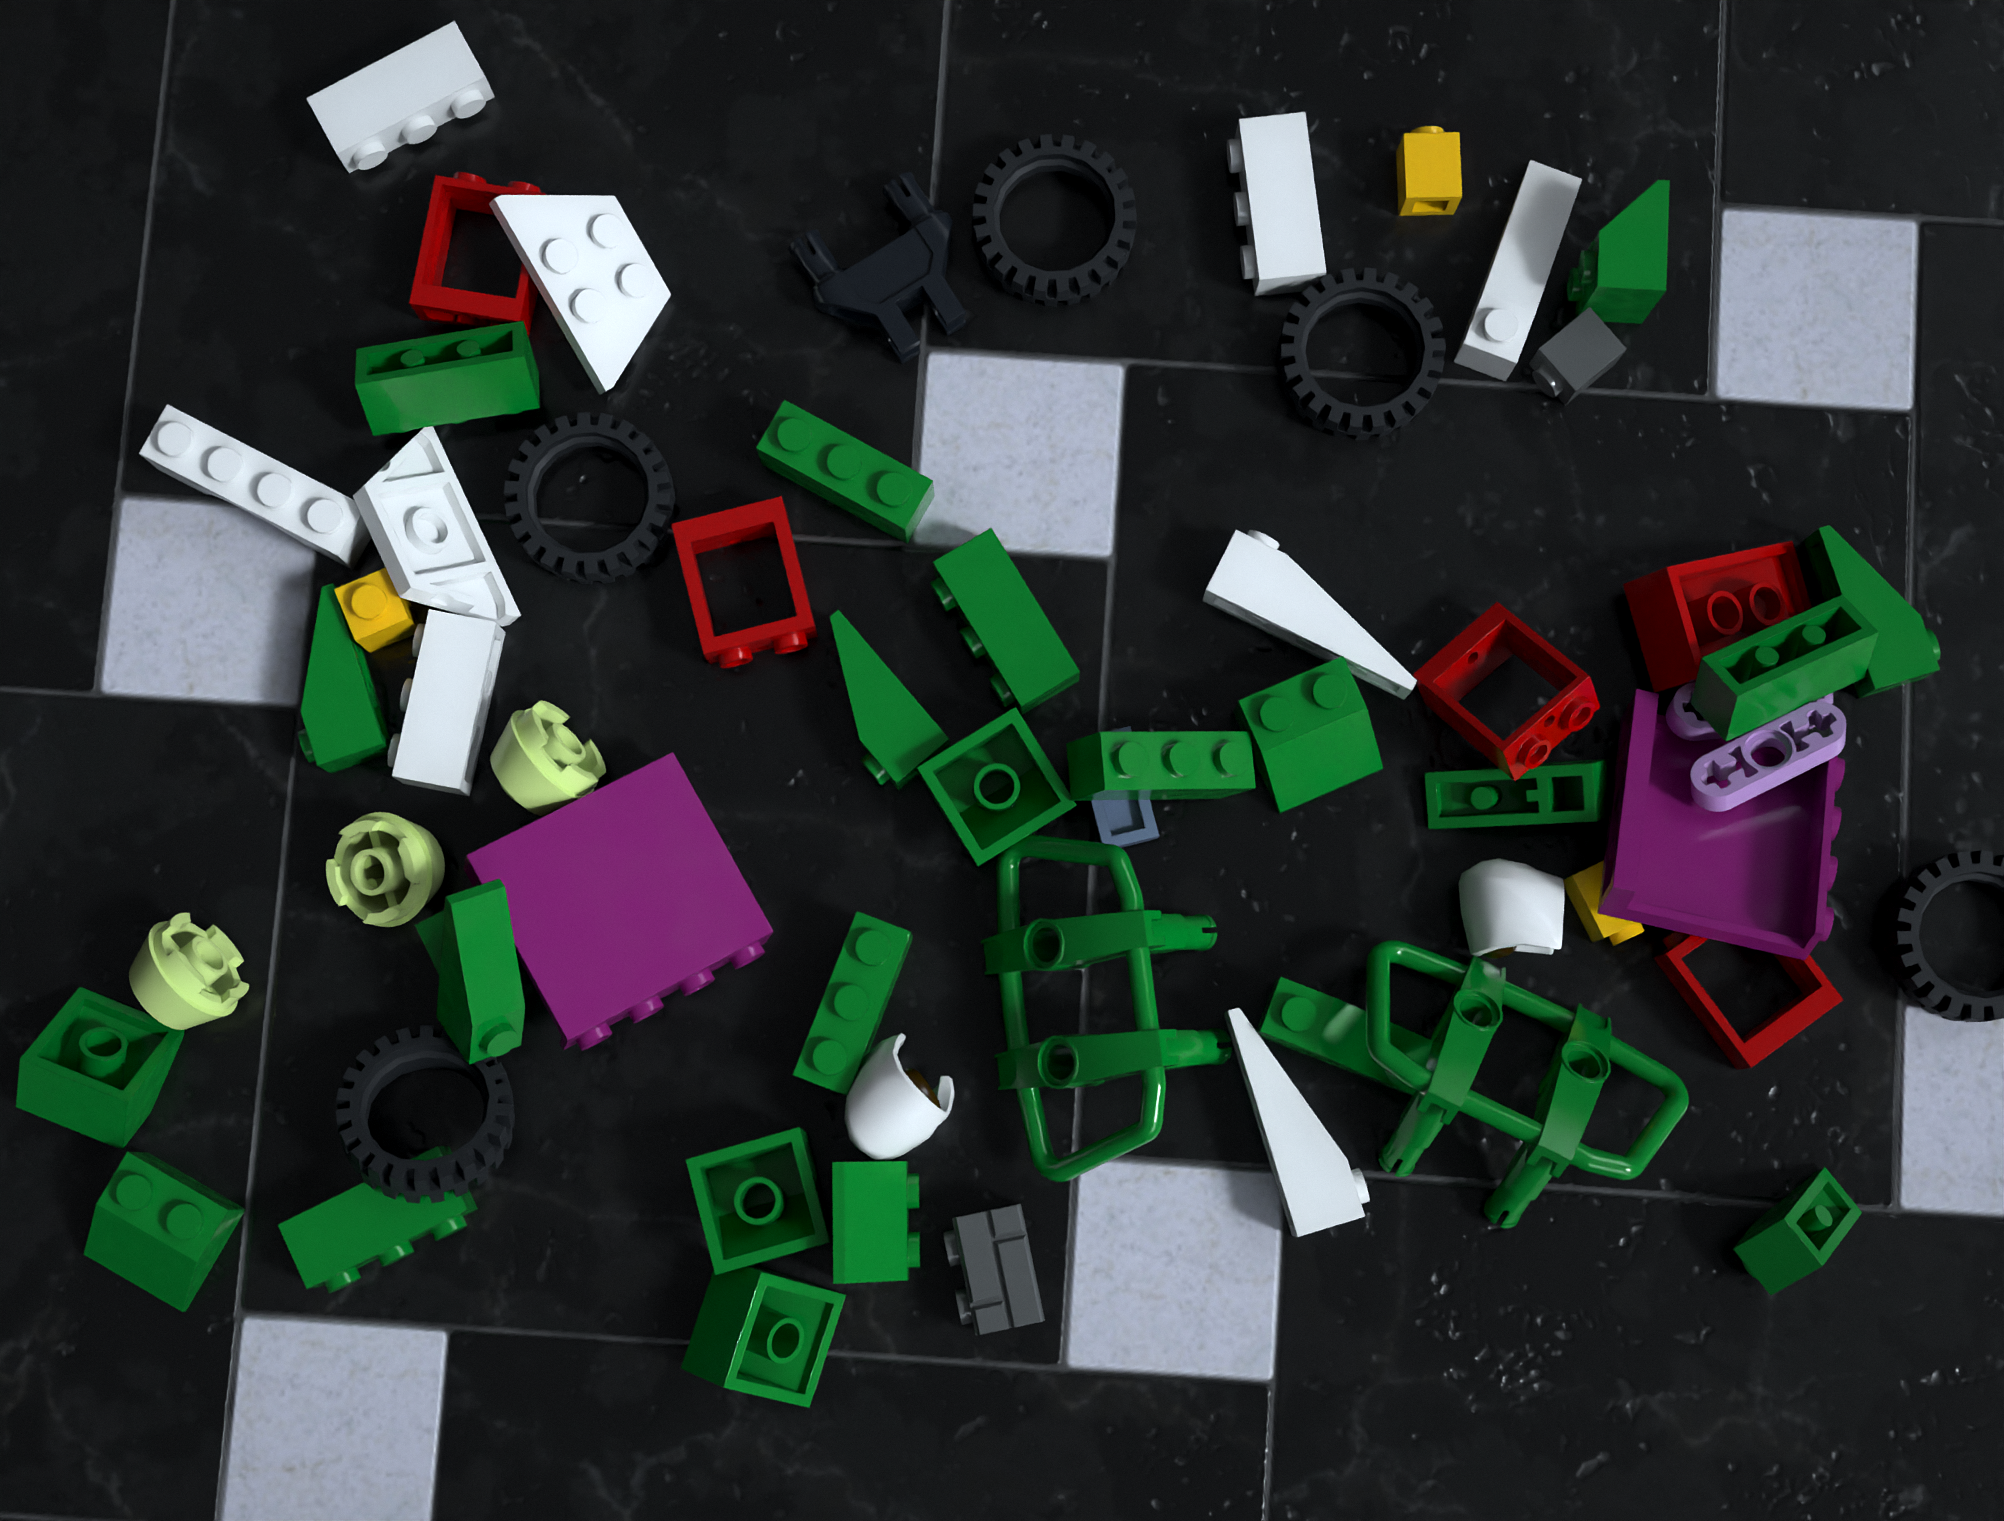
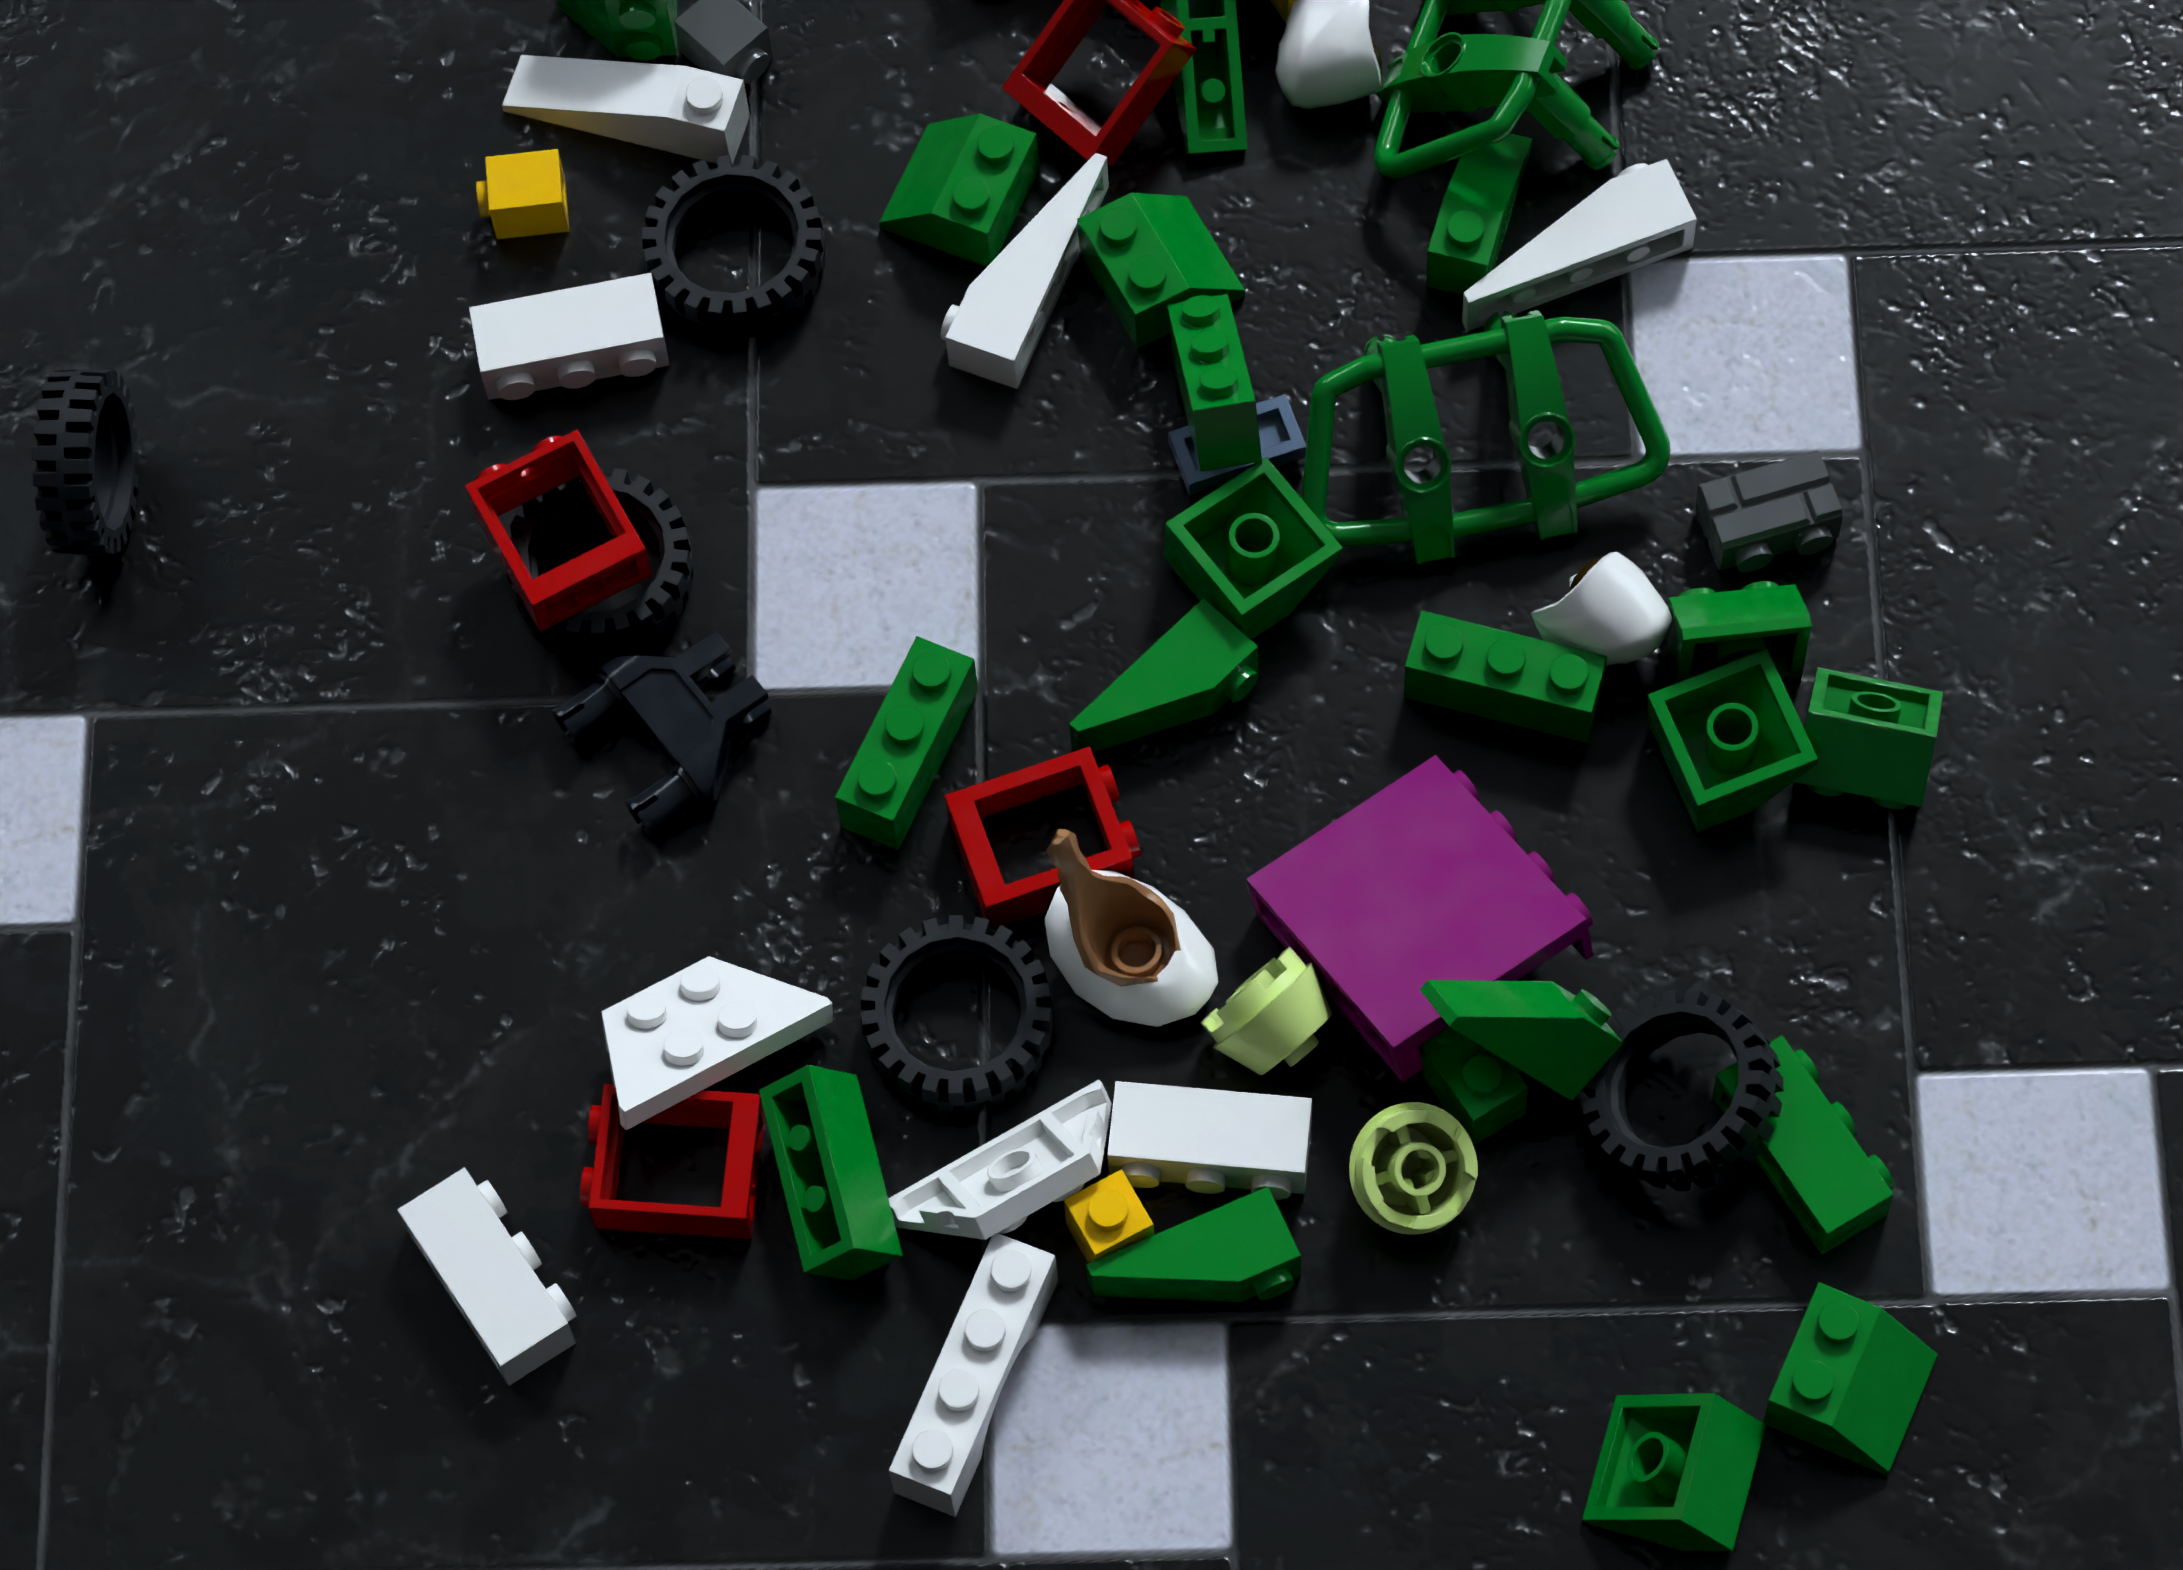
camera: 90 degrees left, 15 degrees down
(187, 974) = (1558, 1375): yellowish green cone -> none
(630, 648) = (1125, 942): none -> hat
(1003, 623) = (1064, 568): green brick -> none
(1111, 126) = (583, 579): none -> red window
(1404, 563) = (964, 186): none -> green slope

